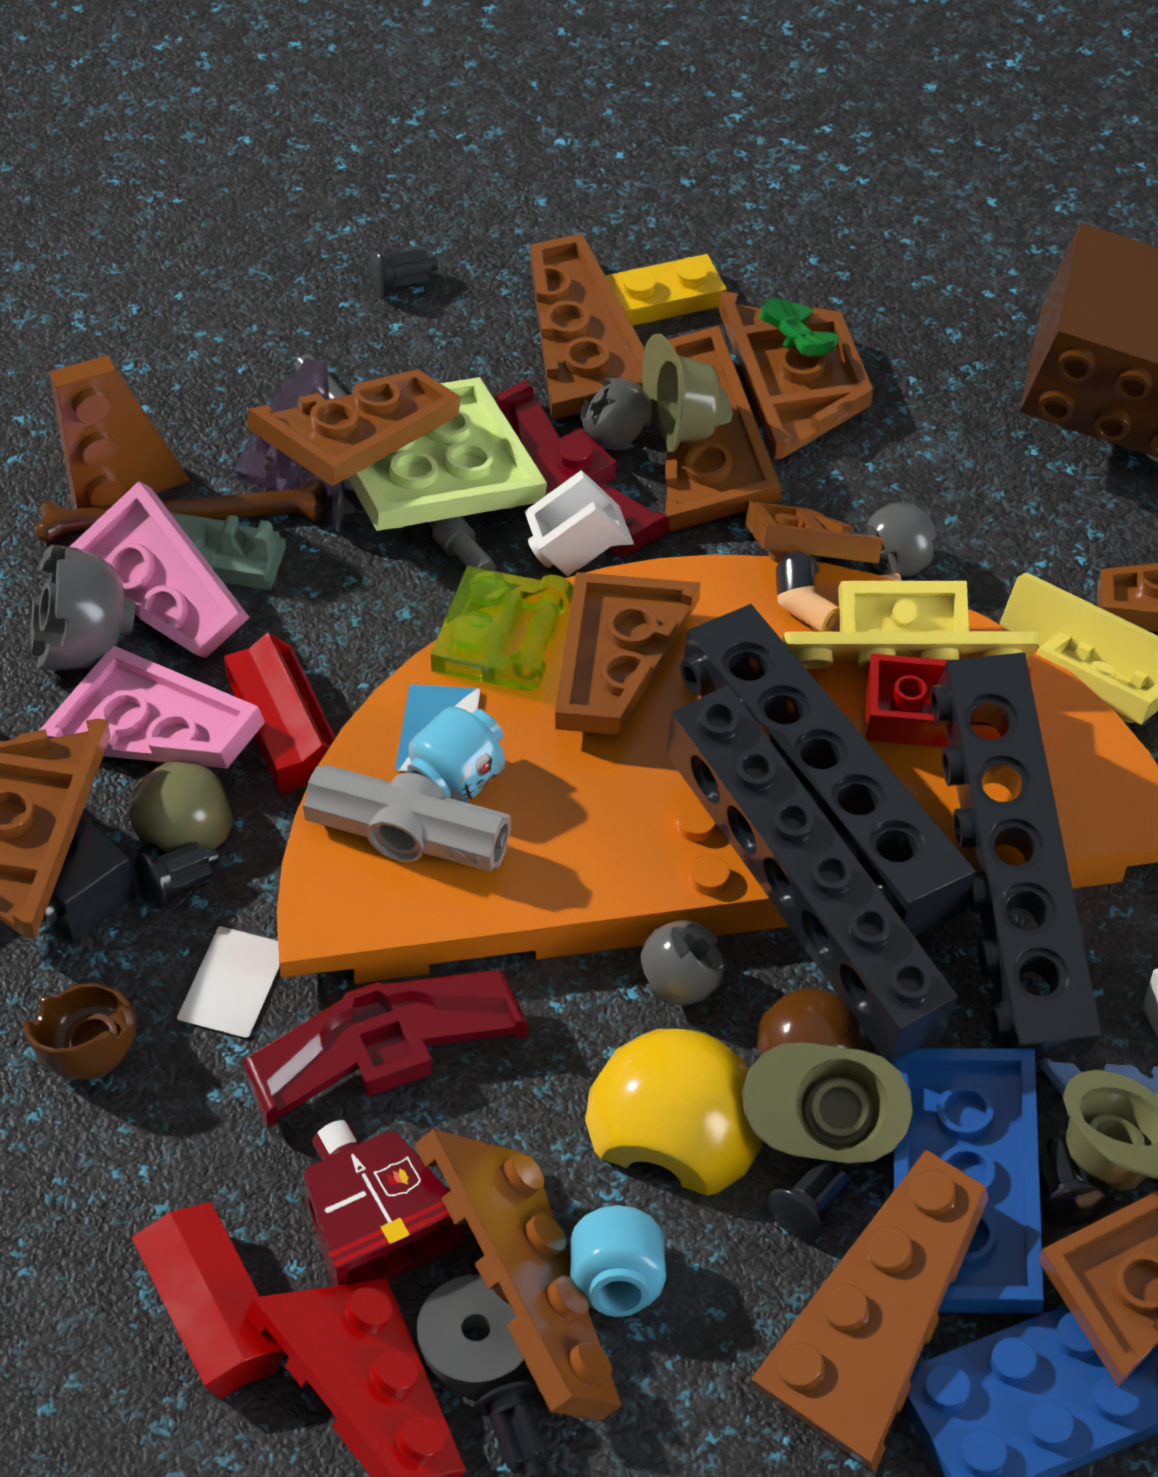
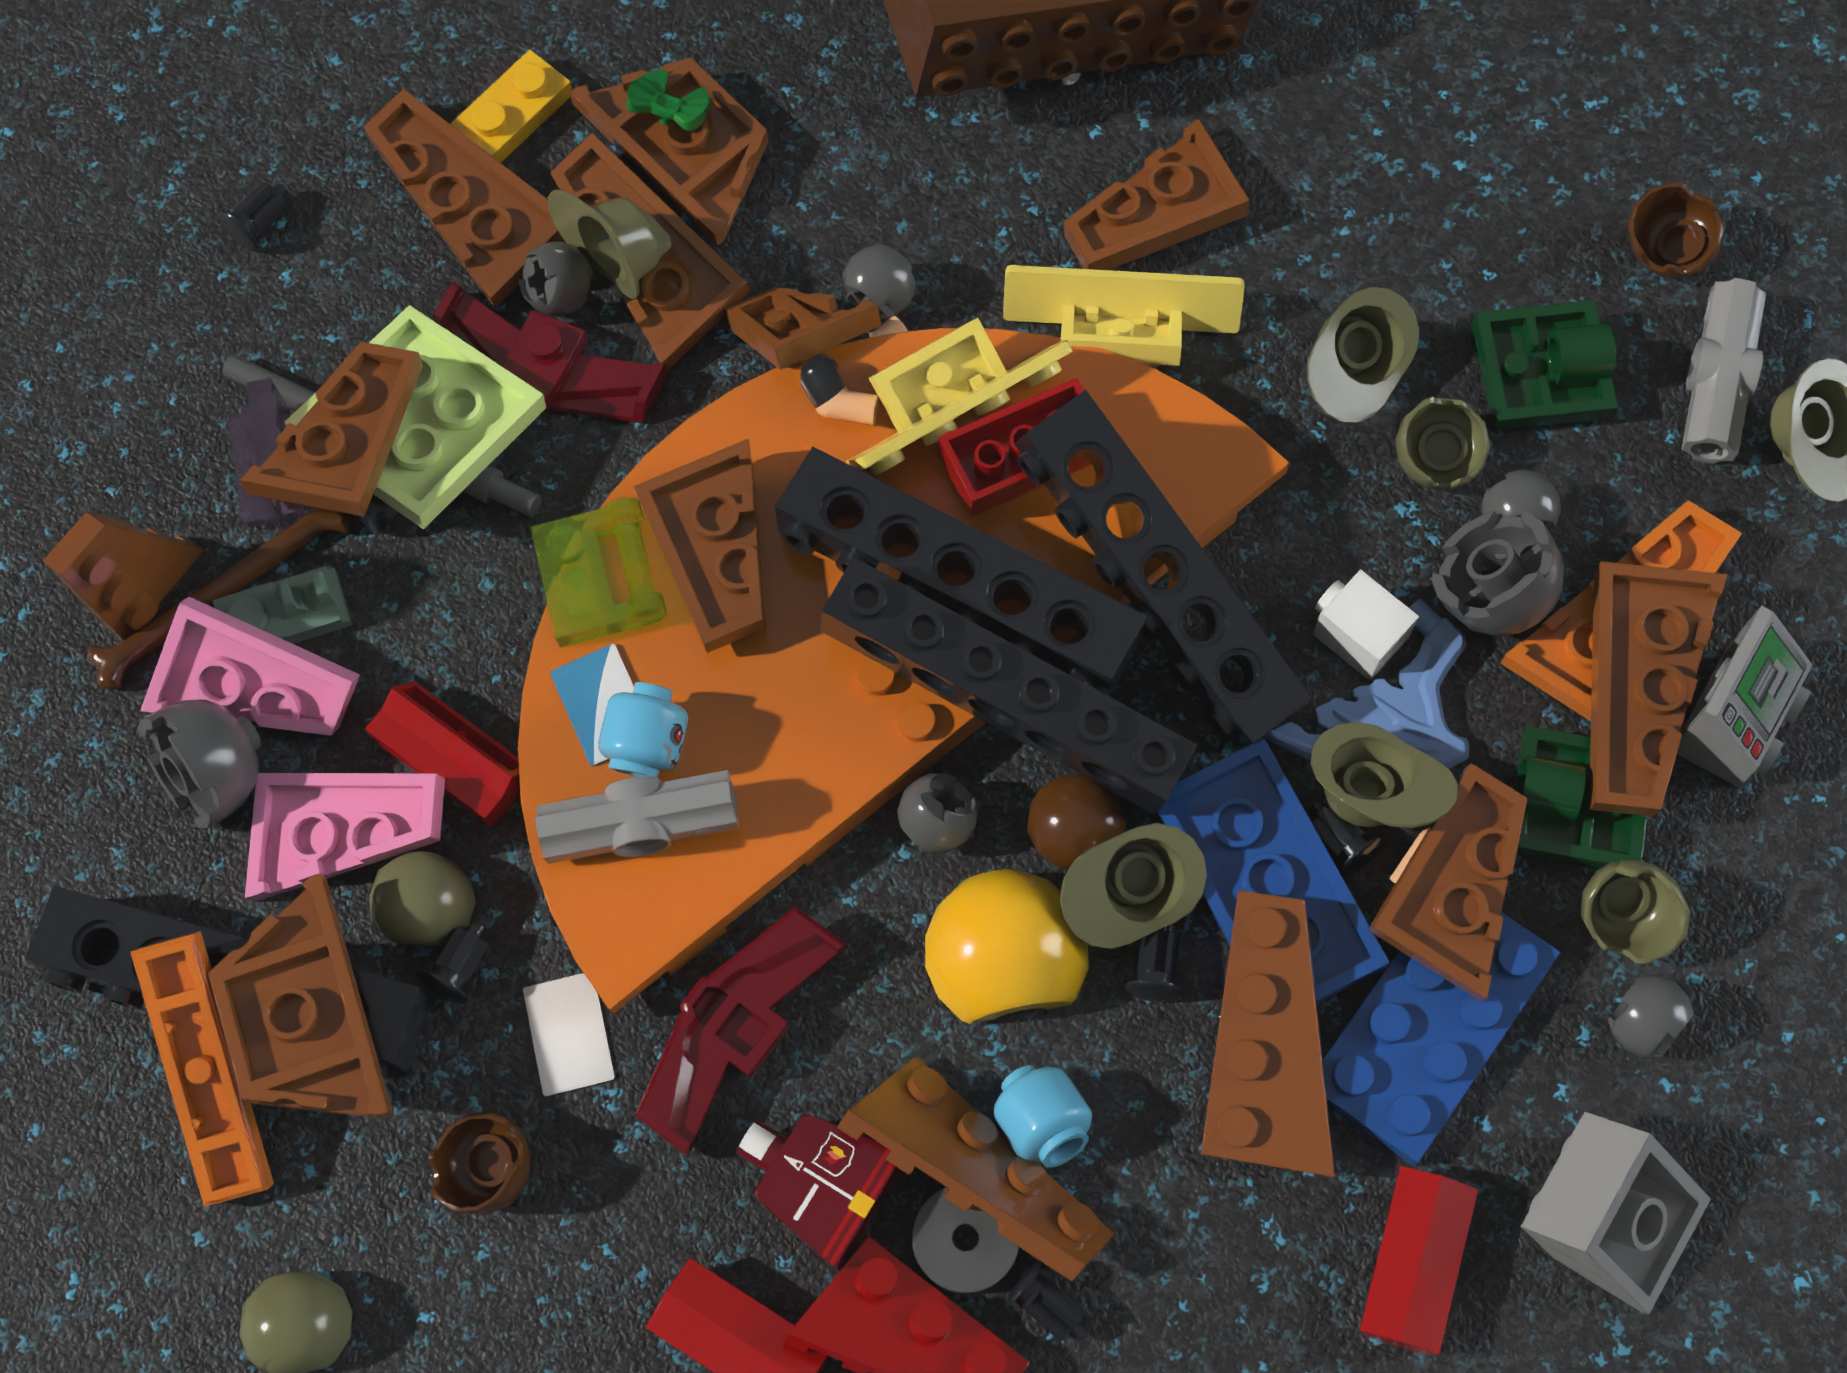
camera: 25 degrees left, 20 degrees up
(575, 524) = (592, 421): white window -> none

